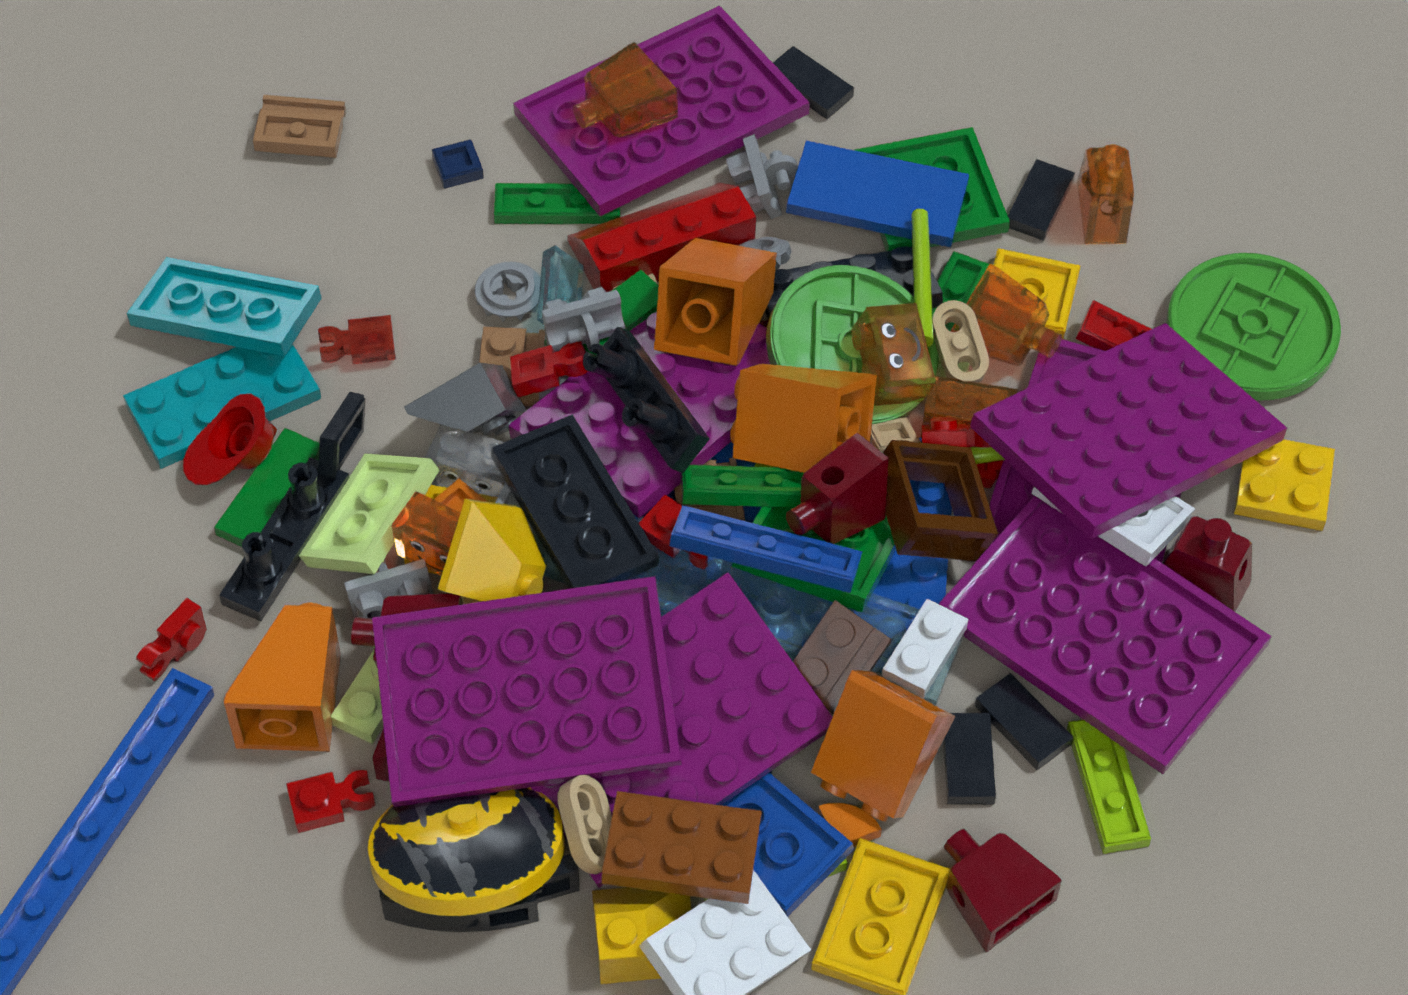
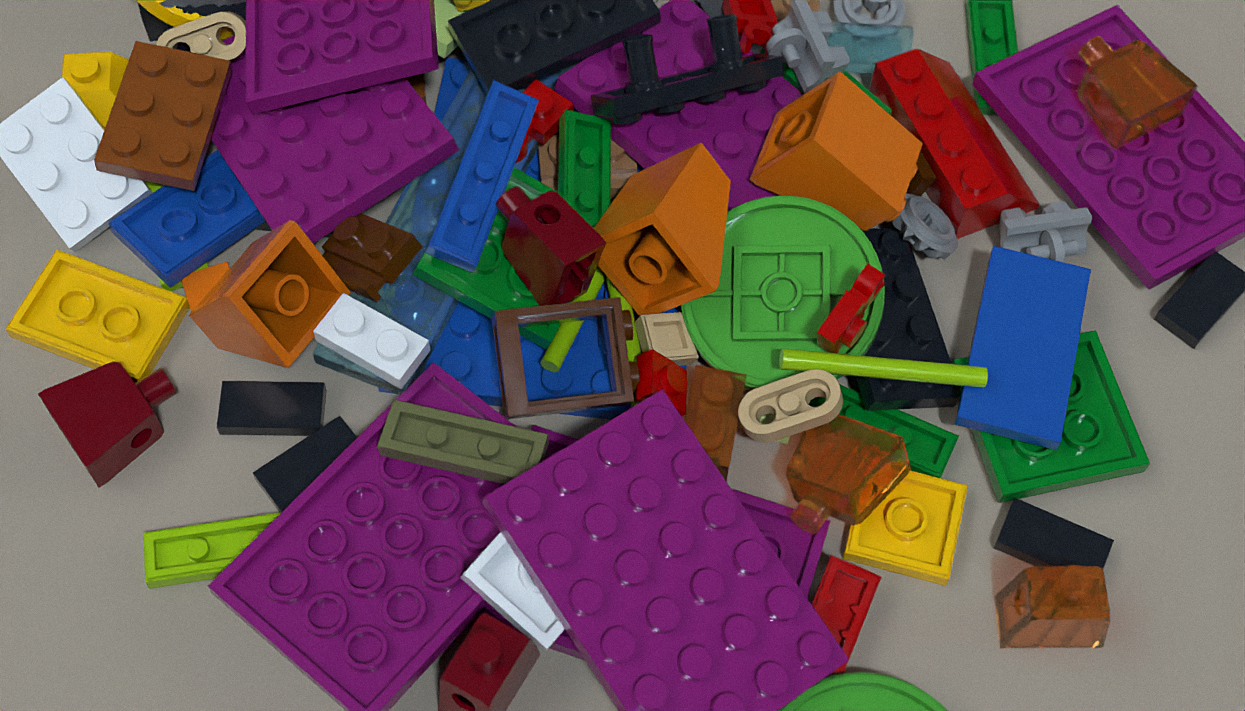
camera: 90 degrees right, 5 degrees up
(887, 285) = (845, 321): none -> red plate
(896, 352) = (757, 320): clear orange brick -> none
(1025, 569) = (460, 443): none -> olive plate

